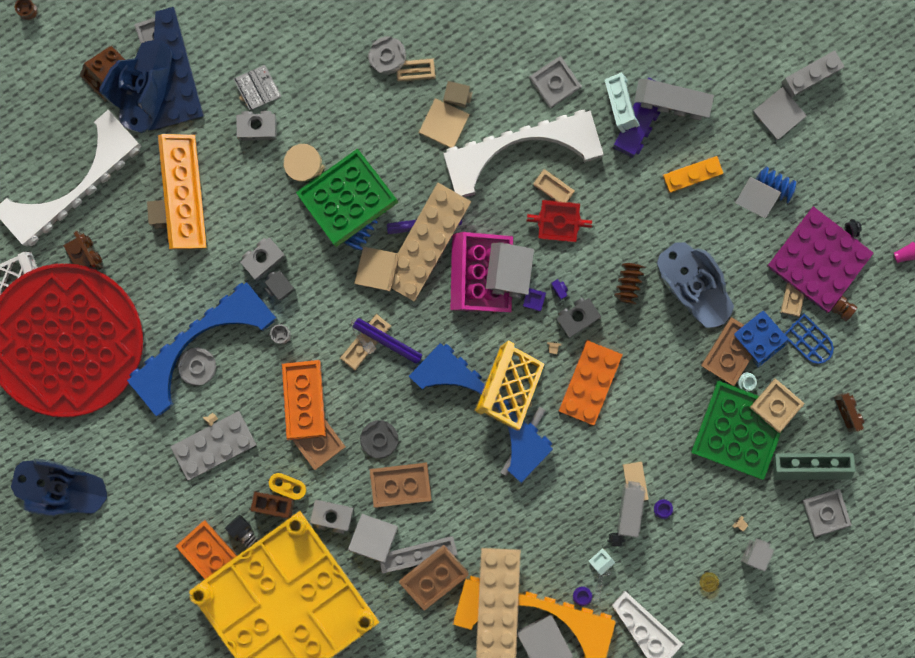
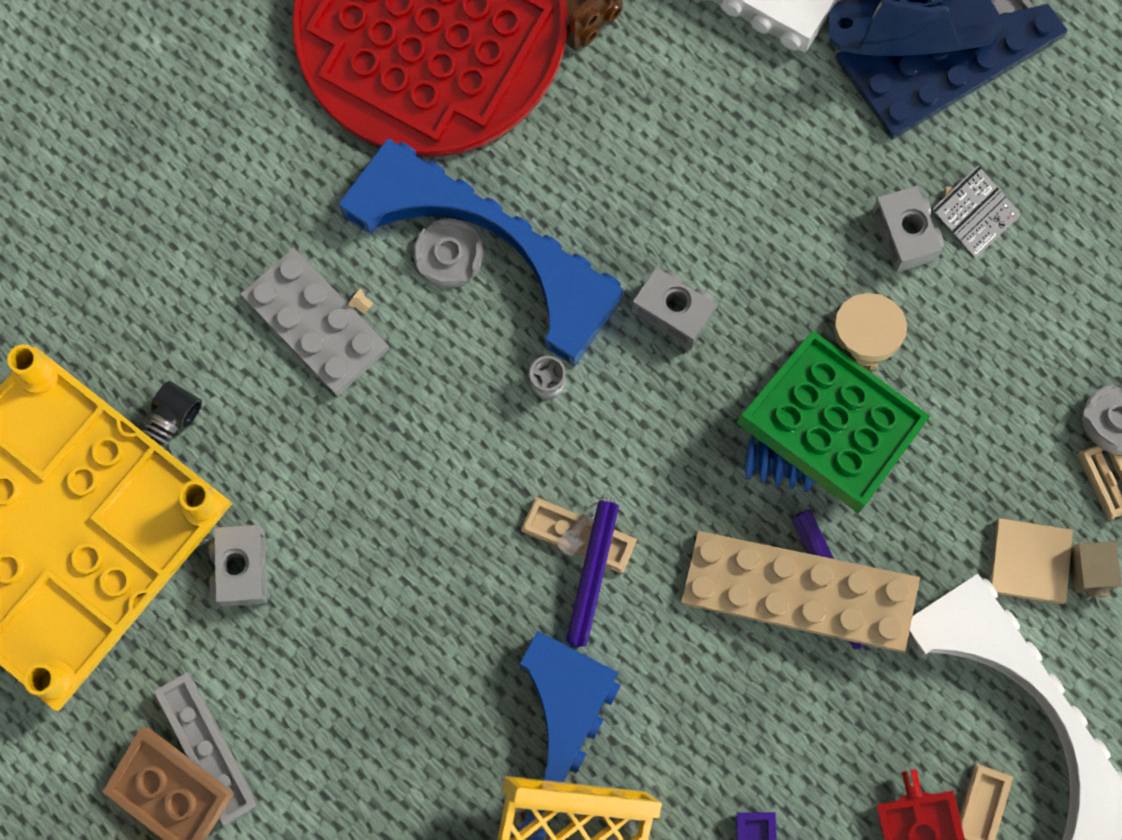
camera: 75 degrees right, 10 degrees down
(64, 489) = (168, 97): dark blue piece -> none
(156, 214) = (697, 110): dark tan brick -> none
(182, 191) = (748, 135): light orange plate -> none
(206, 550) = (123, 360): orange plate -> none
(272, 505) = (230, 451): reddish brown brick -> none
(278, 285) = (634, 349): dark grey brick -> none
(287, 487) = (274, 471): yellow plate -> none
(303, 400) = (439, 453): orange tile -> none
(320, 449) = (368, 503): medium nougat plate -> none
(373, 538) = (215, 654): light grey tile -> none
(376, 268) = (720, 514): tan tile -> none
(379, 433) = (413, 624): dark grey tile -> none
(400, 485) = (330, 677): medium nougat plate -> none
(470, 273) = (775, 714): dark pink slope -> none
(509, 269) = (799, 766): light grey brick -> none

